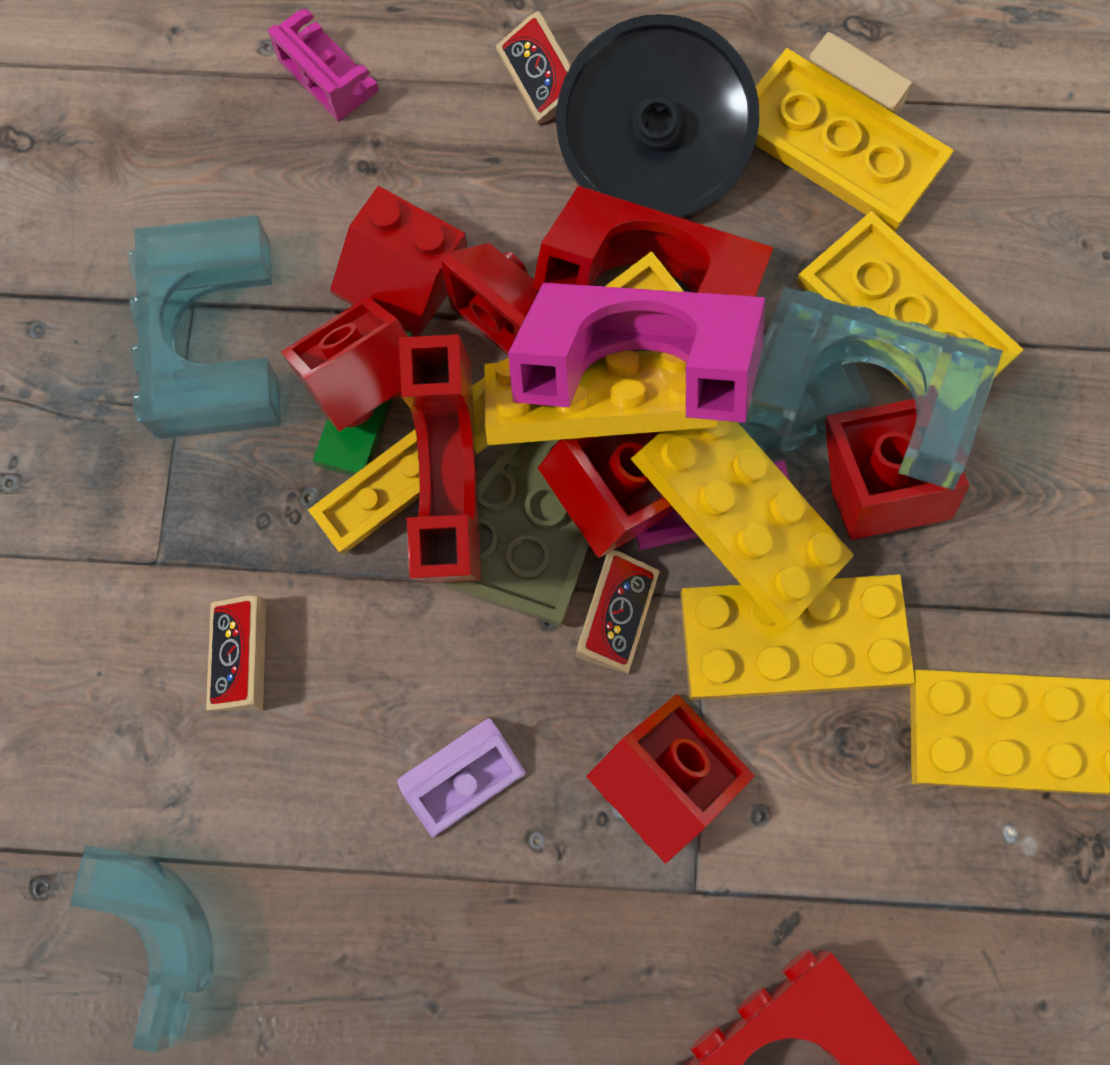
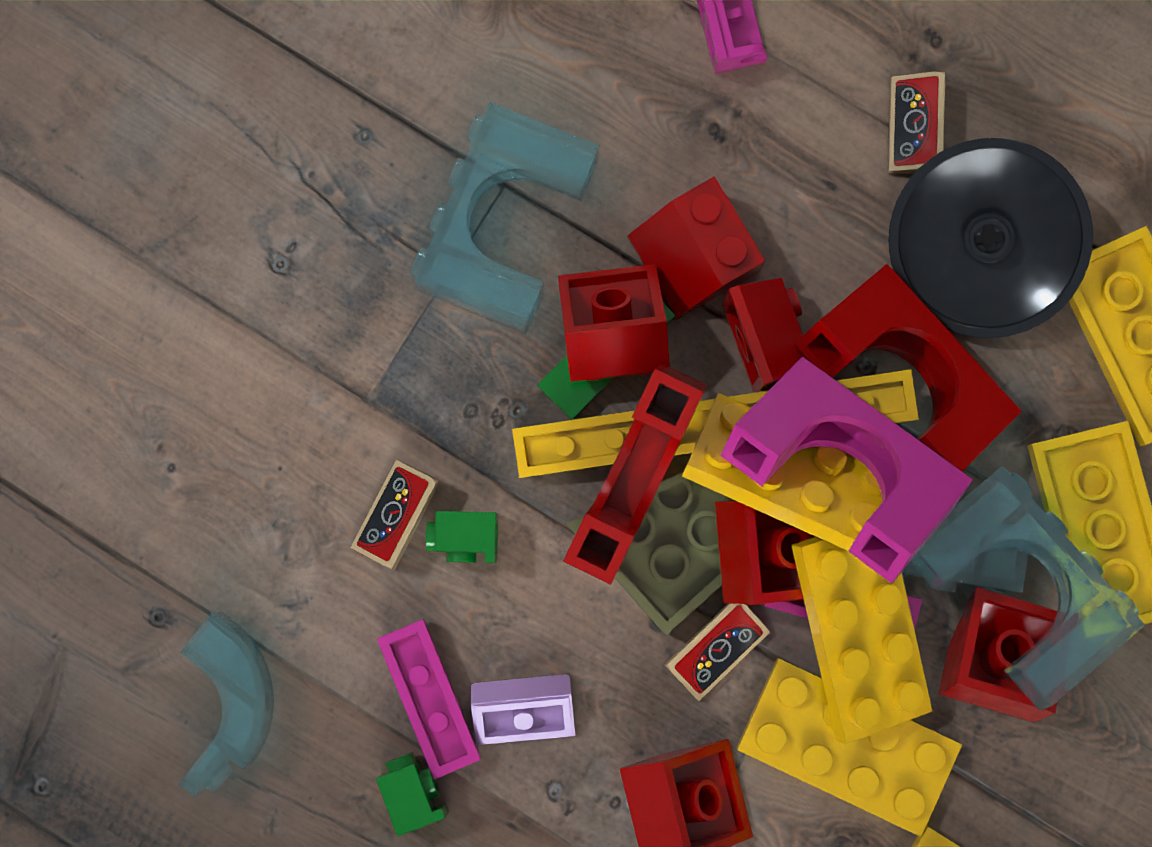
camera: 30 degrees right, 10 degrees up
(312, 634) = (464, 535): none -> green brick
(359, 816) = (429, 699): none -> dark pink plate
(387, 923) = (410, 794): none -> green brick

